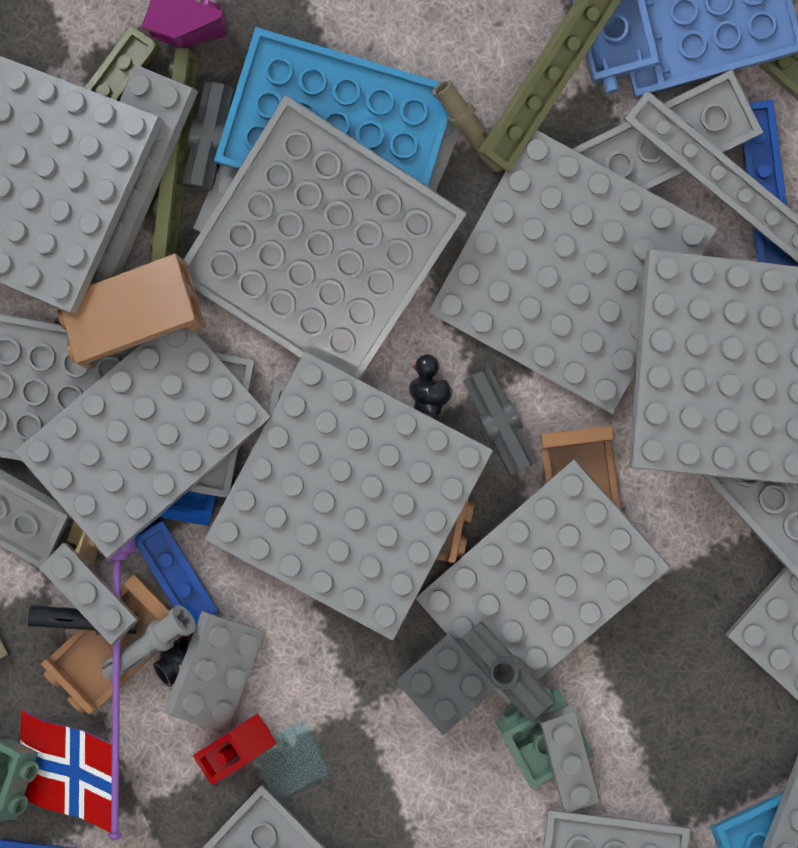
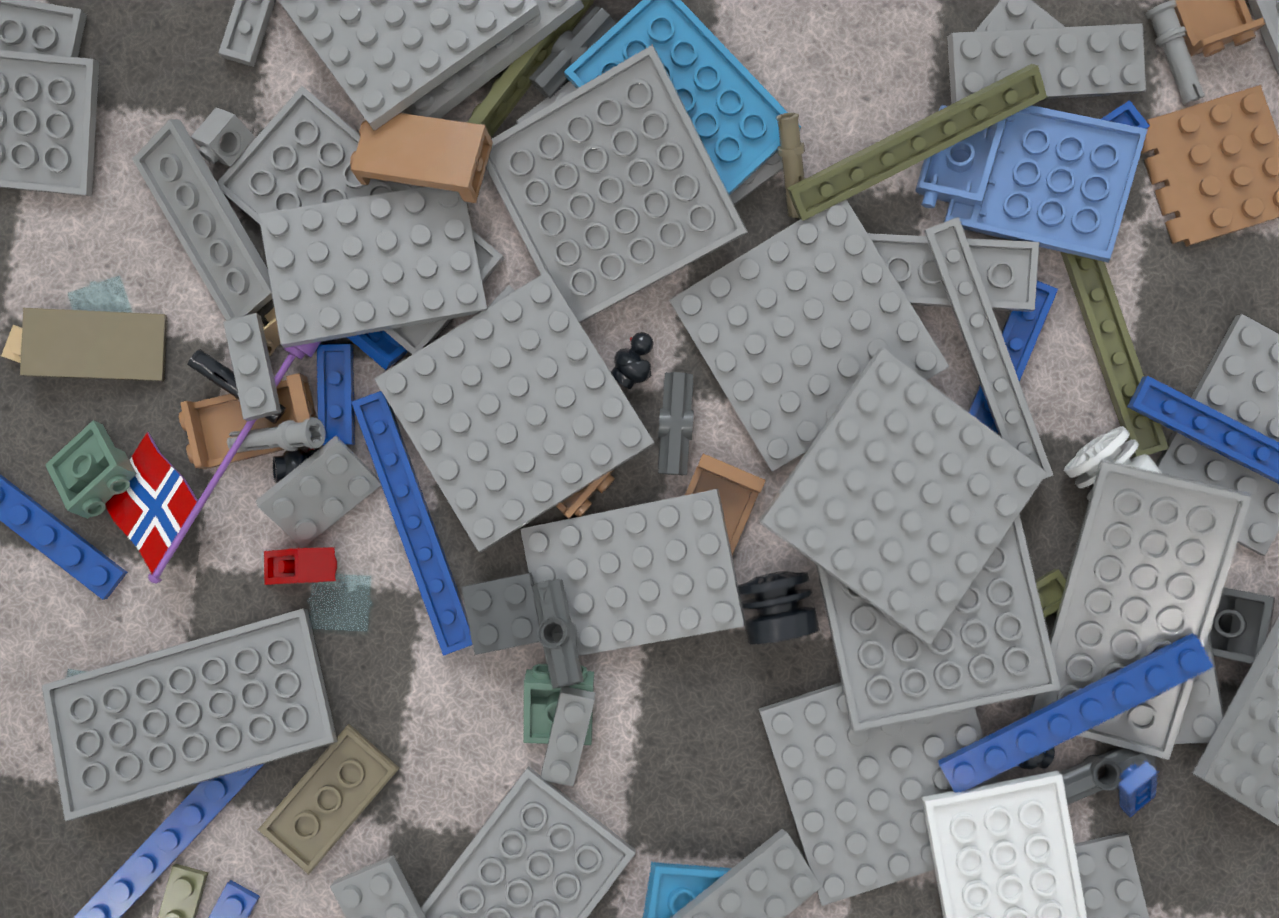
camera: 30 degrees right, 0 degrees up
(315, 649) = (413, 522): none -> blue plate
(689, 533) = (778, 608): none -> black wheel

